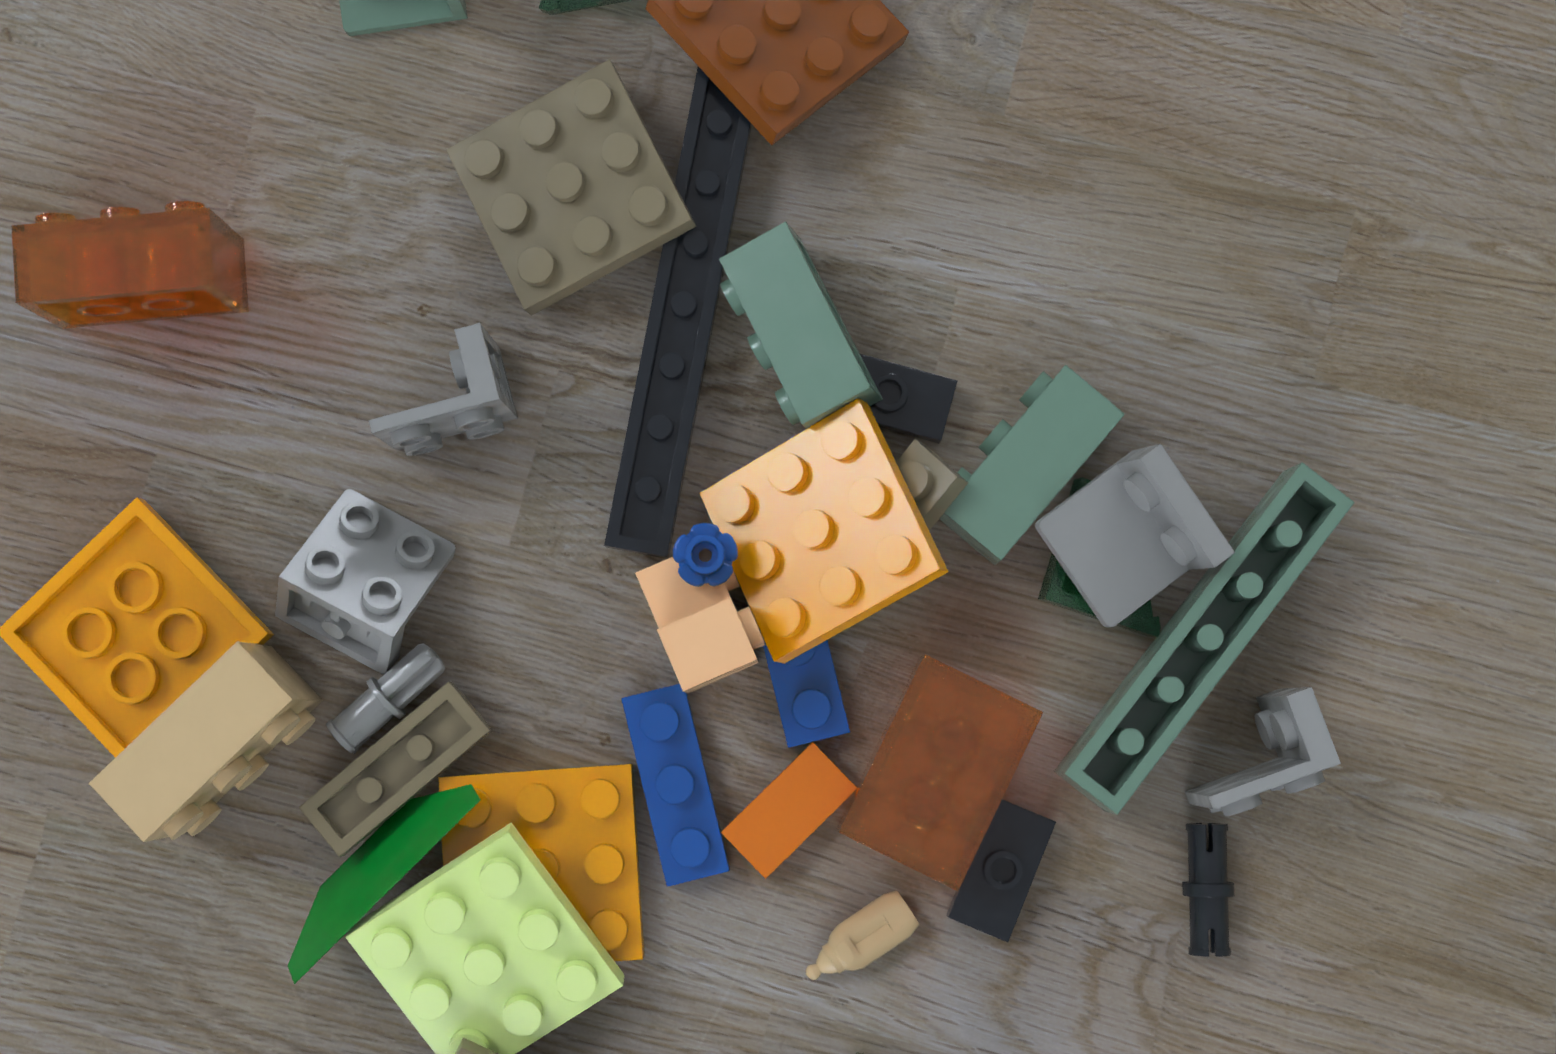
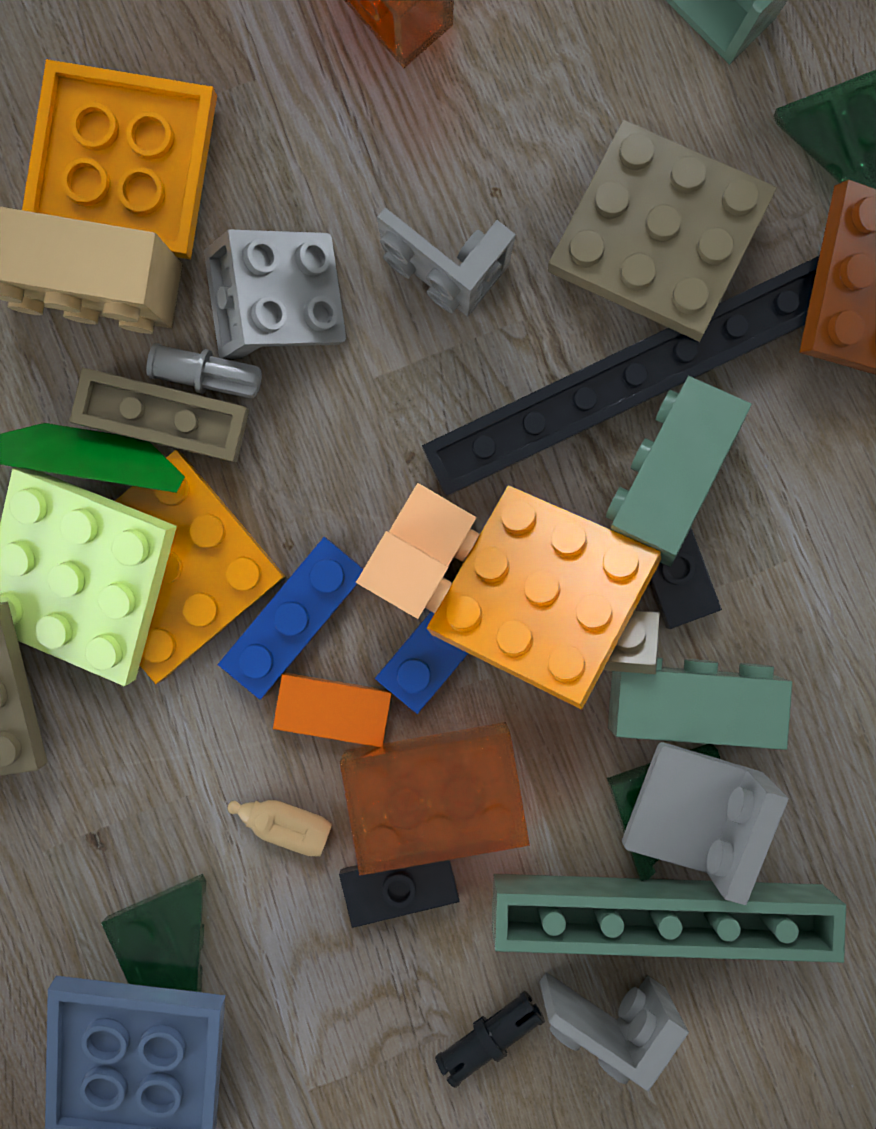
camera: 55 degrees right, 5 degrees up
(714, 571) = (465, 540): blue plate -> none

